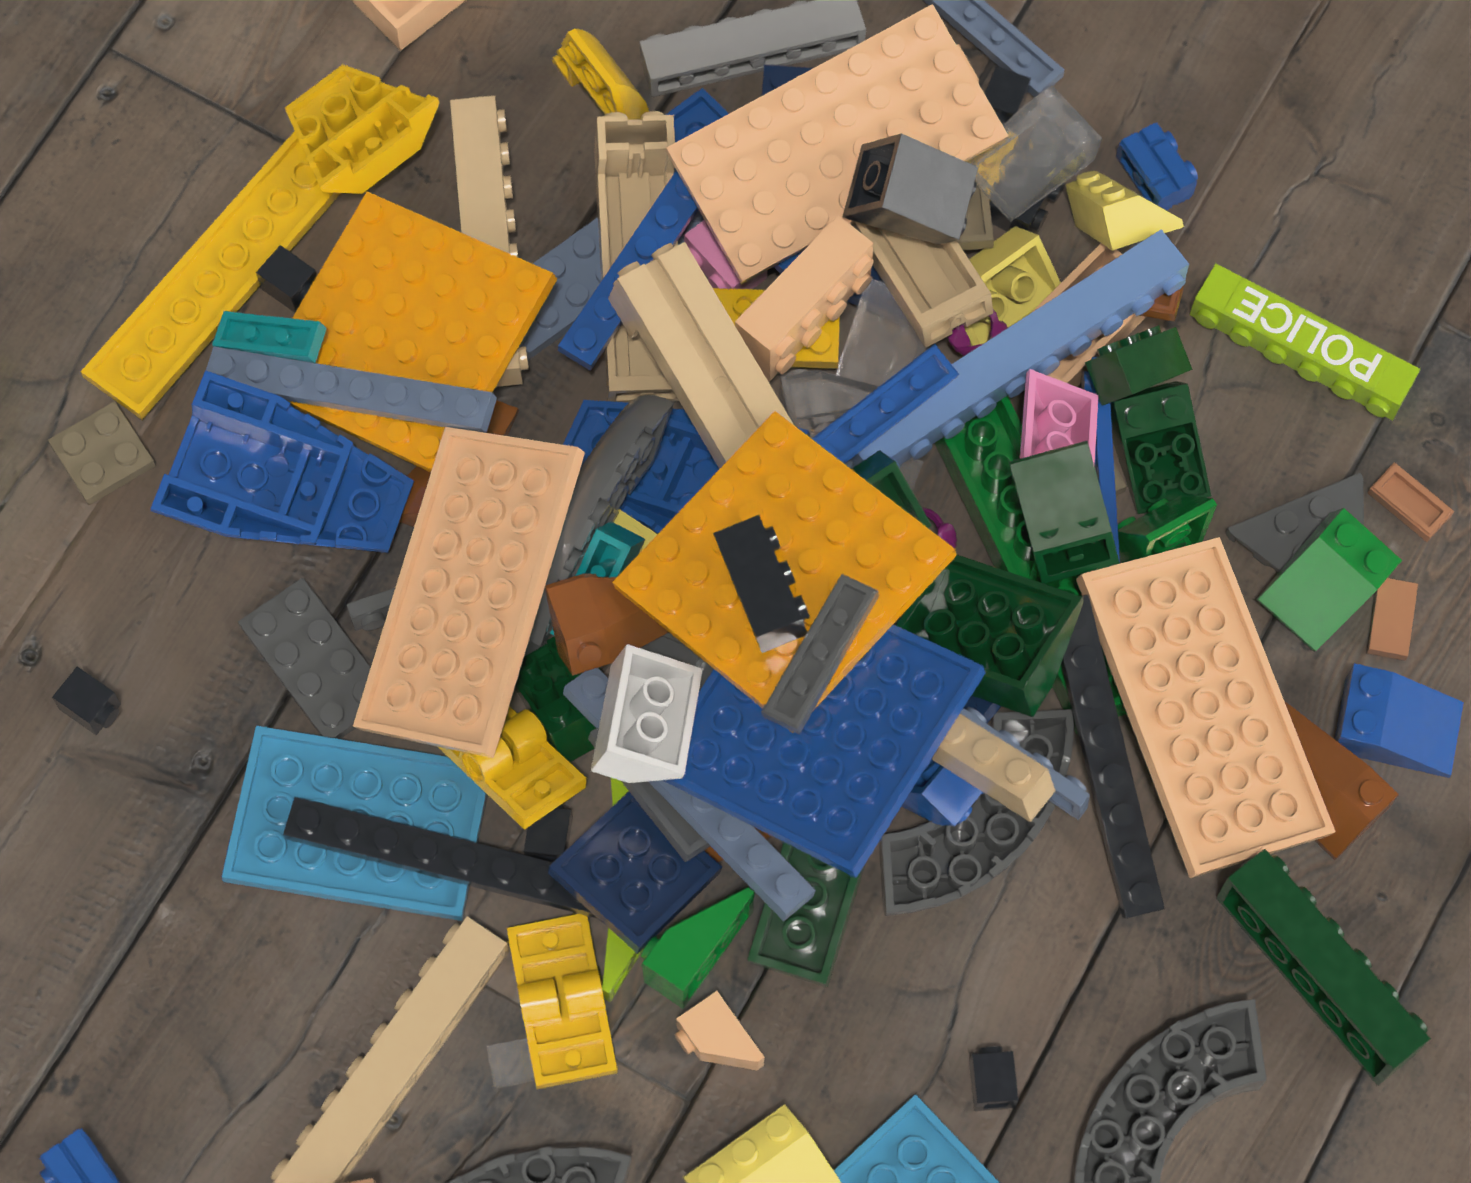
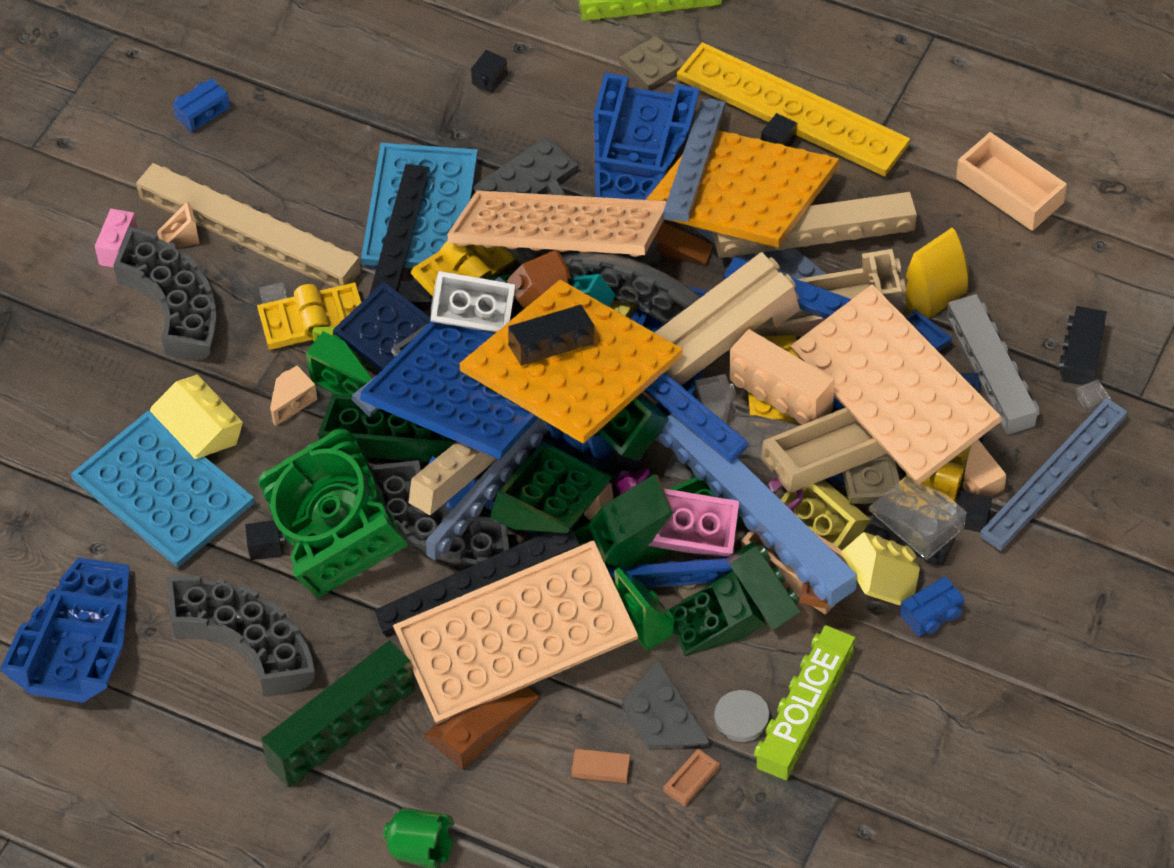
camera: 90 degrees right, 15 degrees down
(270, 335) = (730, 122): teal plate -> none
(358, 128) = (880, 149): yellow wedge -> none
(820, 654) = (506, 369): dark grey tile -> none
(911, 189) = (856, 418): slope -> none
(929, 1037) = (329, 523): none -> green brick
(1316, 428) = (741, 715): none -> light grey tile
(1328, 578) = (623, 715): green slope -> none
(1398, 721) = (521, 766): blue slope -> none

